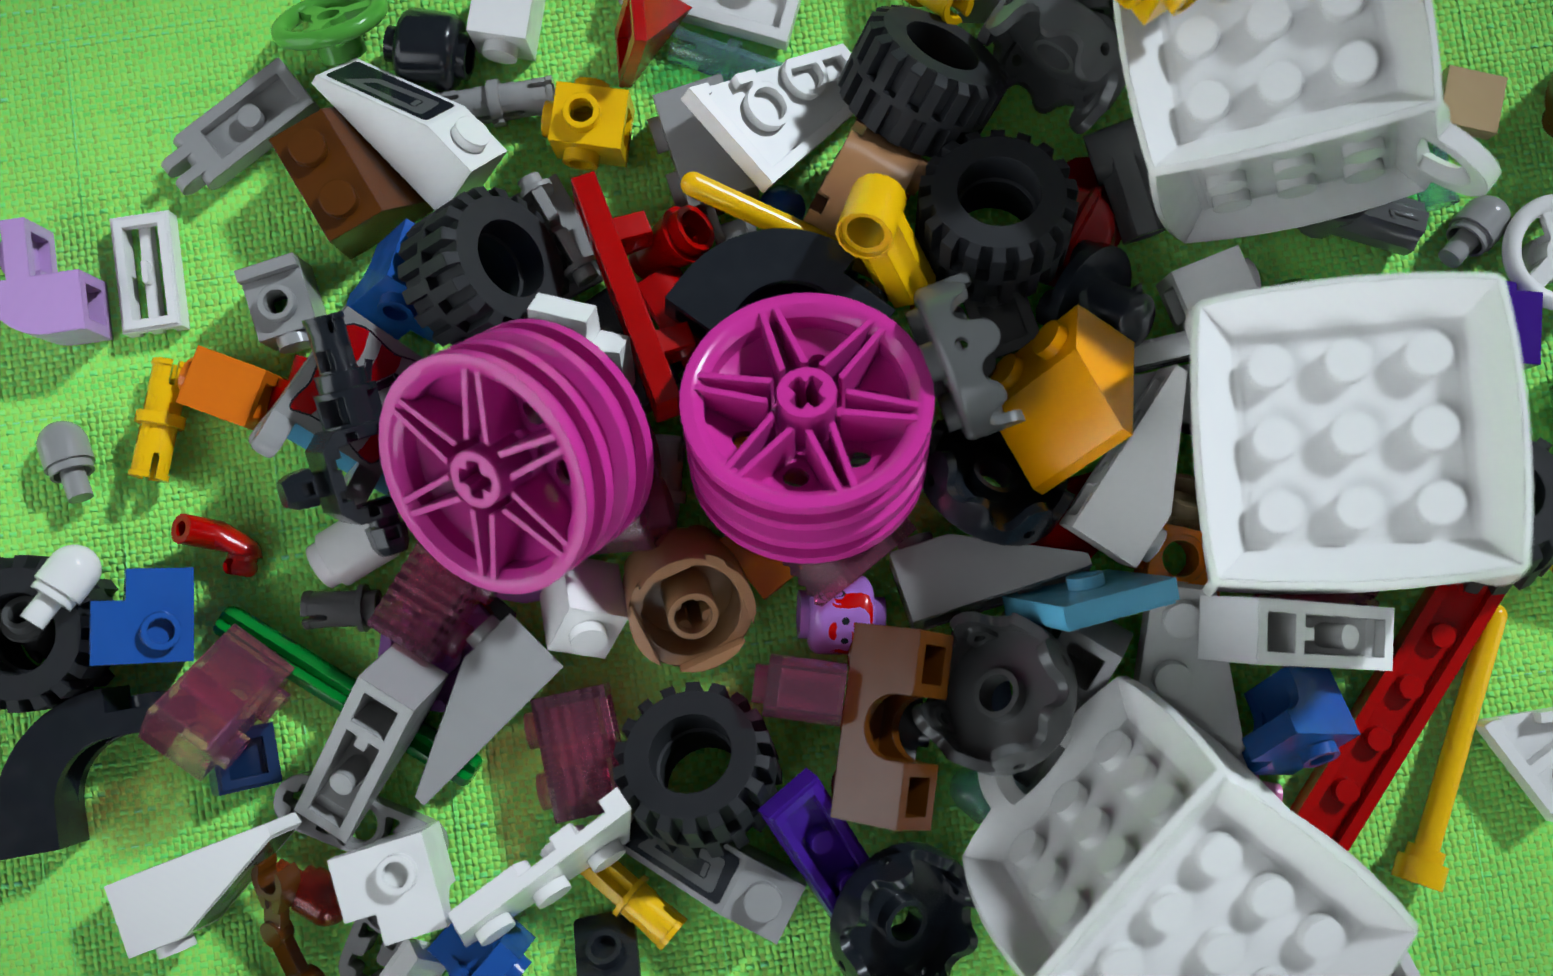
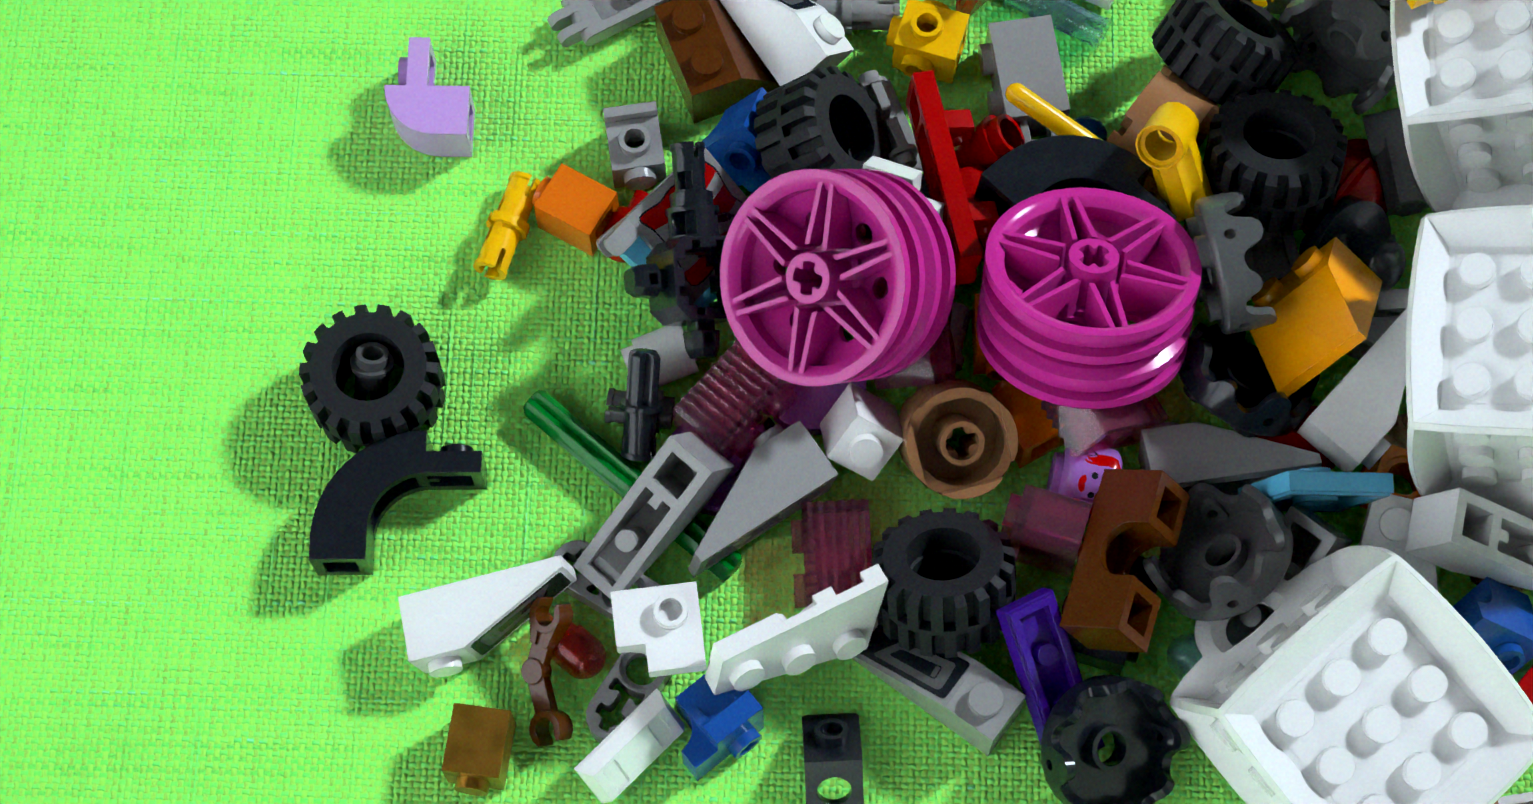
camera: 10 degrees right, 15 degrees down
(62, 582) = (423, 324): white cylinder -> none
(67, 458) = (419, 245): light grey cylinder -> none
(149, 623) = (478, 384): blue brick -> none
(172, 270) = (516, 145): white tile -> none
(216, 702) = (528, 457): clear pink brick -> none
(219, 536) = (540, 329): red arm -> none
(253, 768) = (524, 524): dark blue slope -> none
(335, 618) = (641, 405): none -> black axle
(637, 902) = (863, 700): yellow axle -> none
(775, 114) = (1094, 54): white wing -> none

